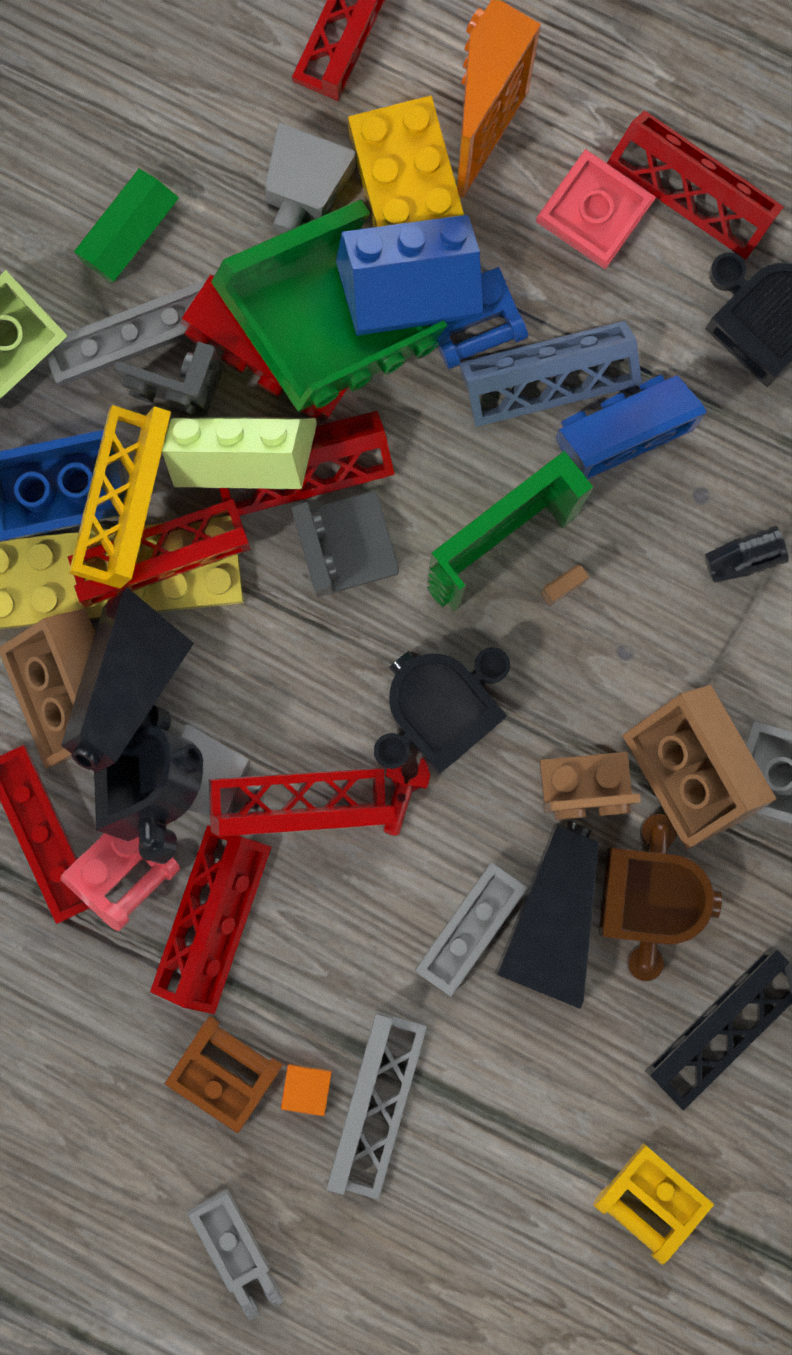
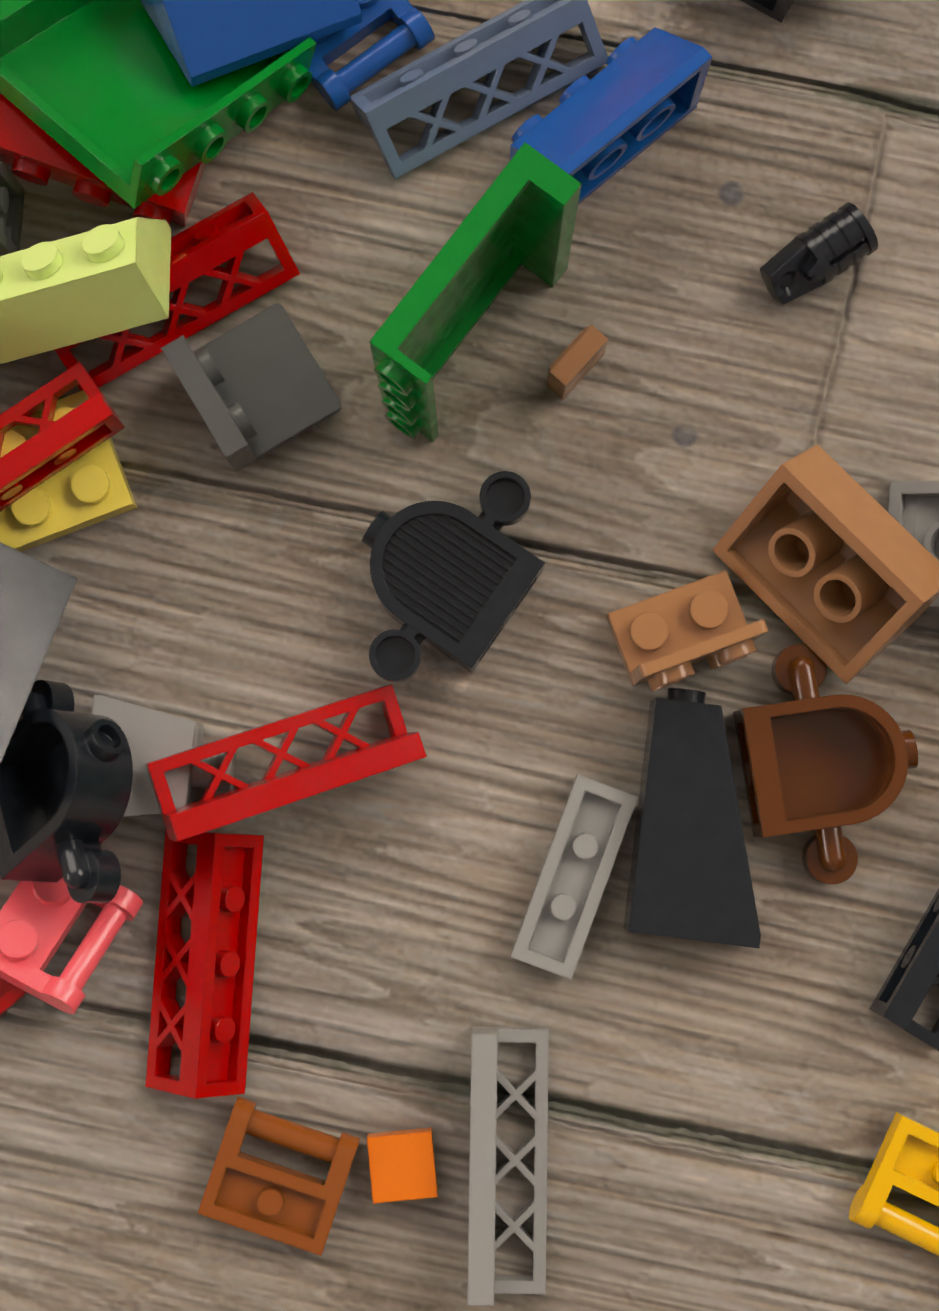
camera: 10 degrees left, 0 degrees up
(403, 794) = (429, 712): red bar -> none

